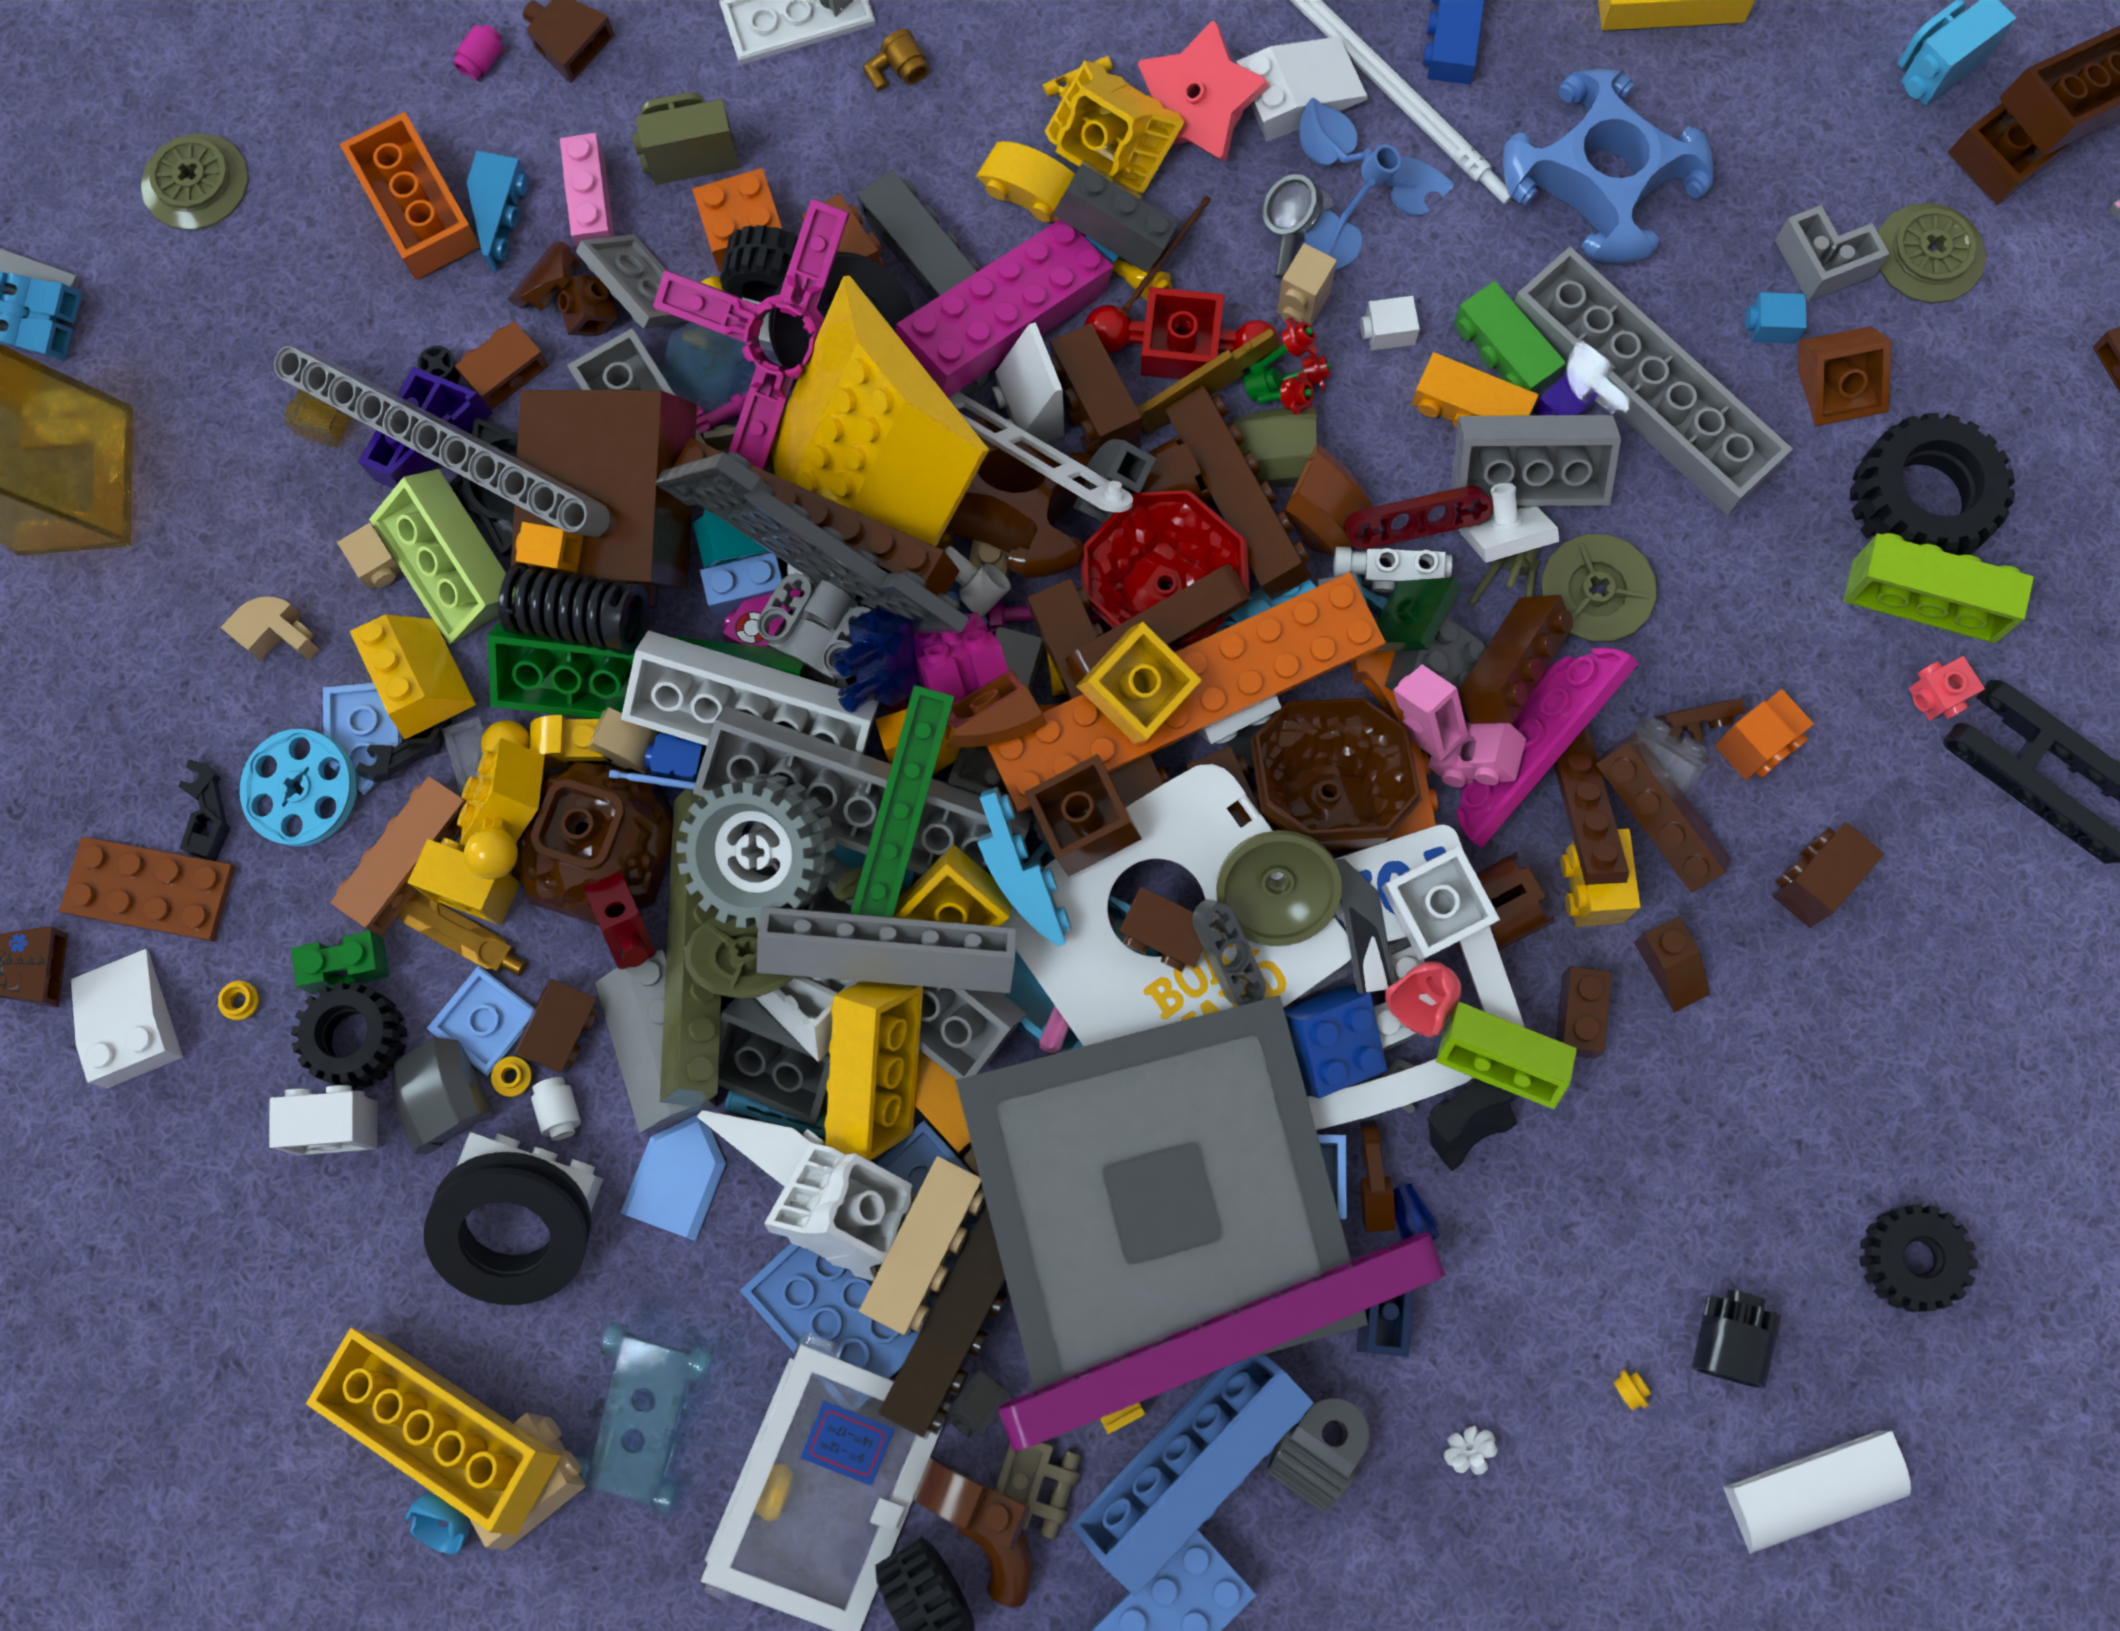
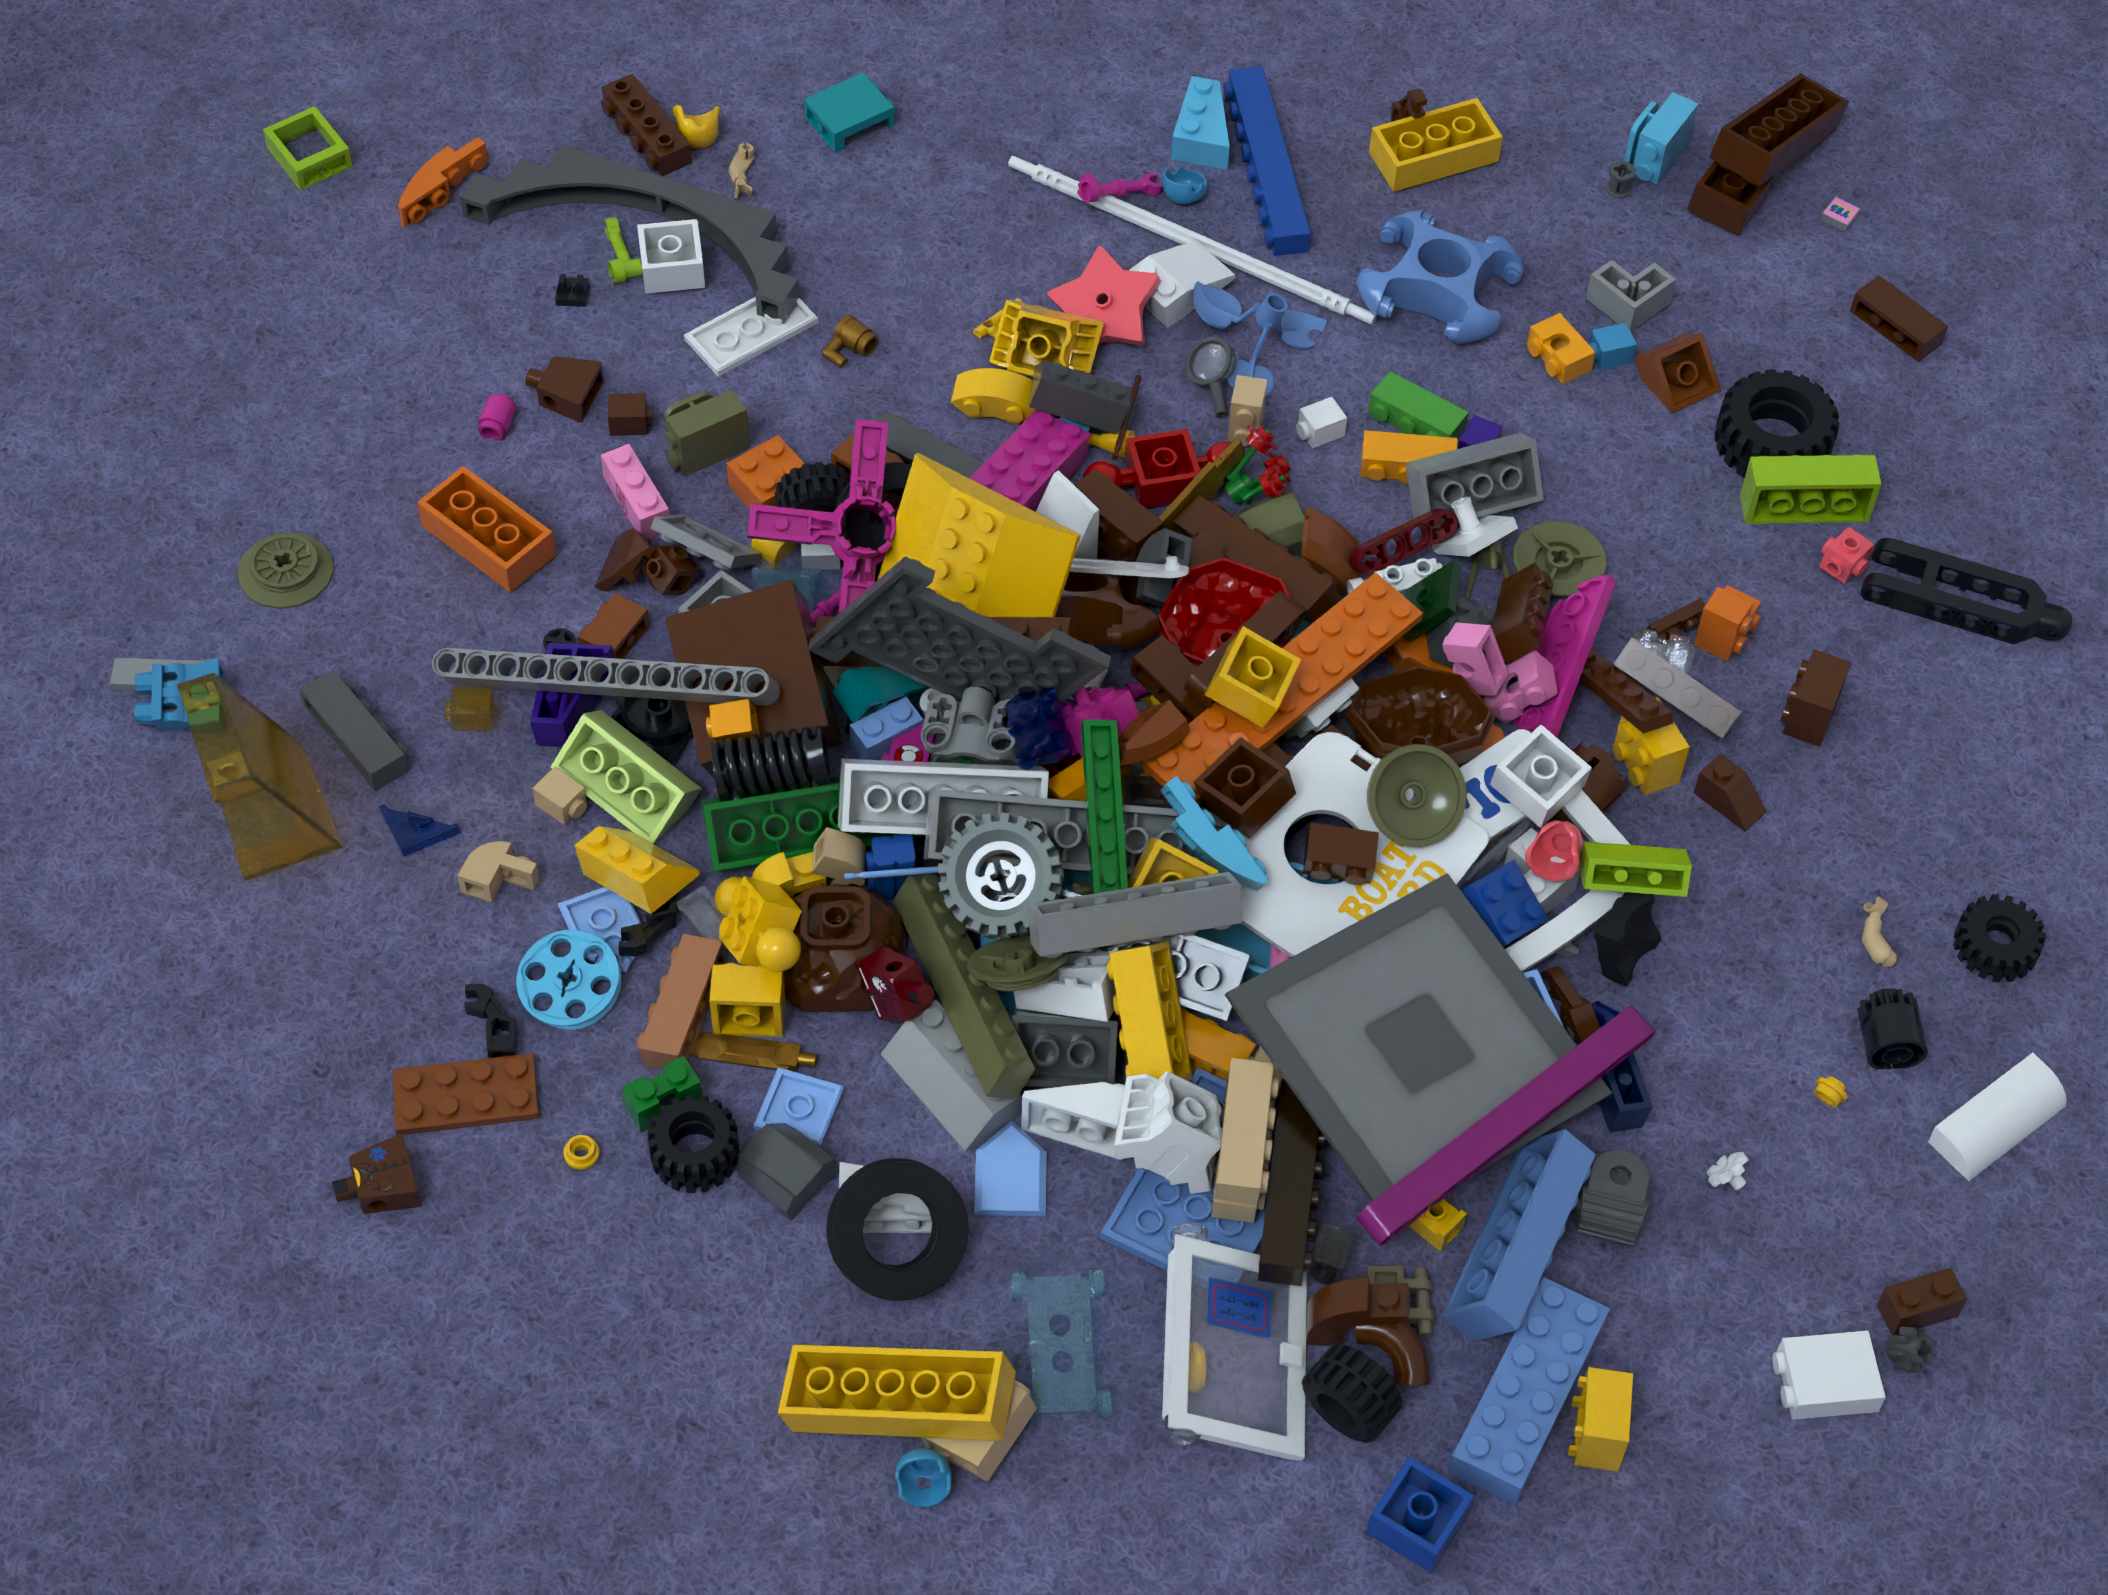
camera: 25 degrees left, 20 degrees down
(122, 1021) = (489, 1194): white slope -> none
(187, 407) = (355, 729): none -> dark grey brick
(210, 549) = (416, 831): none -> clear blue tile
(323, 1122) = (703, 1207): white brick -> none
(494, 194) = (554, 509): dark azure slope -> none
(522, 1081) = (841, 1148): yellow plate -> none
(555, 1026) = (865, 1087): reddish brown brick -> none
(555, 1108) = (885, 1143): white brick -> none
(618, 89) = (629, 414): none -> reddish brown brick
(1214, 945) = (1409, 878): dark grey beam -> none
(1365, 931) = (1494, 822): sticker -> none
(1584, 1010) = (1675, 829): reddish brown brick -> none
(1588, 374) = (1492, 410): clear brick -> none
(1675, 398) = (1553, 413): light grey brick -> none
(1716, 284) = (1560, 348): none -> light orange brick
(1765, 1203) = (1872, 938): none -> tan arm
(1877, 88) = (1625, 180): none -> dark grey bush
(1928, 274) = (1709, 293): olive piece -> none

